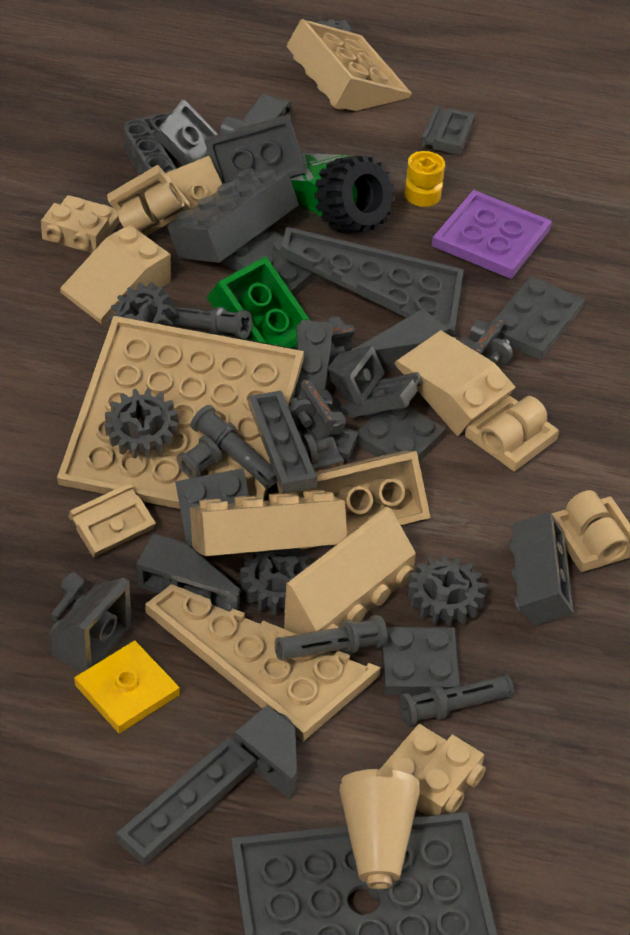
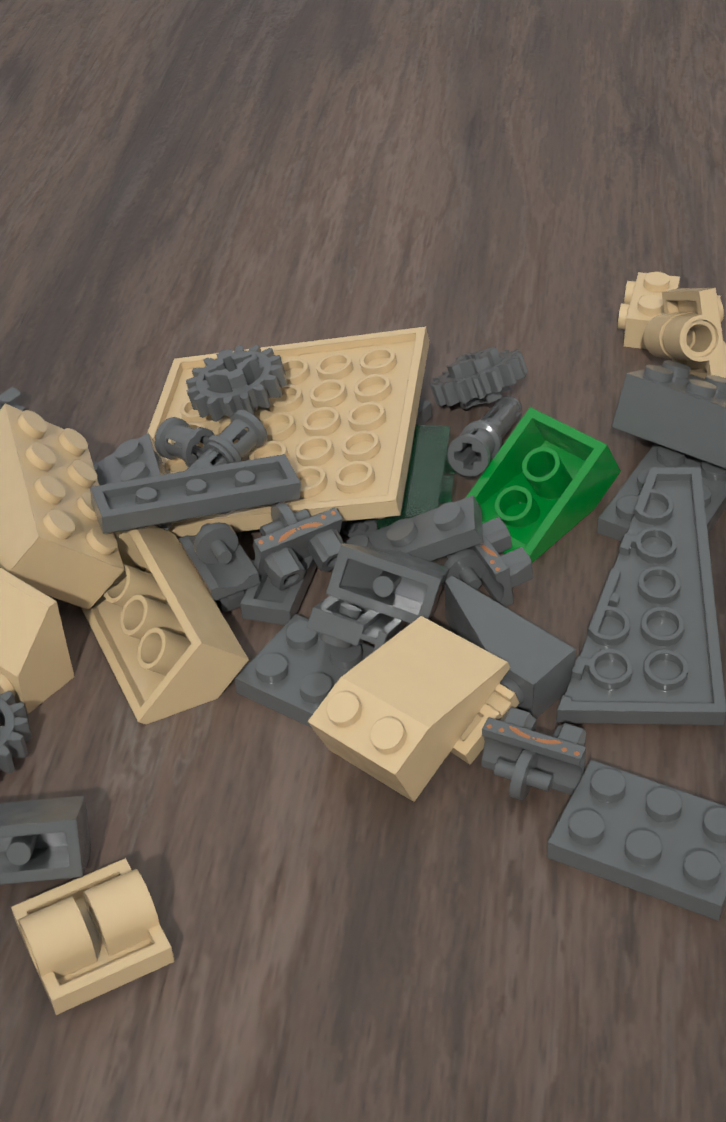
camera: 90 degrees right, 5 degrees down
(111, 520) = (105, 409): tan plate -> none
(115, 265) = (580, 358): tan slope -> none
(513, 431) = (322, 804): tan plate -> none

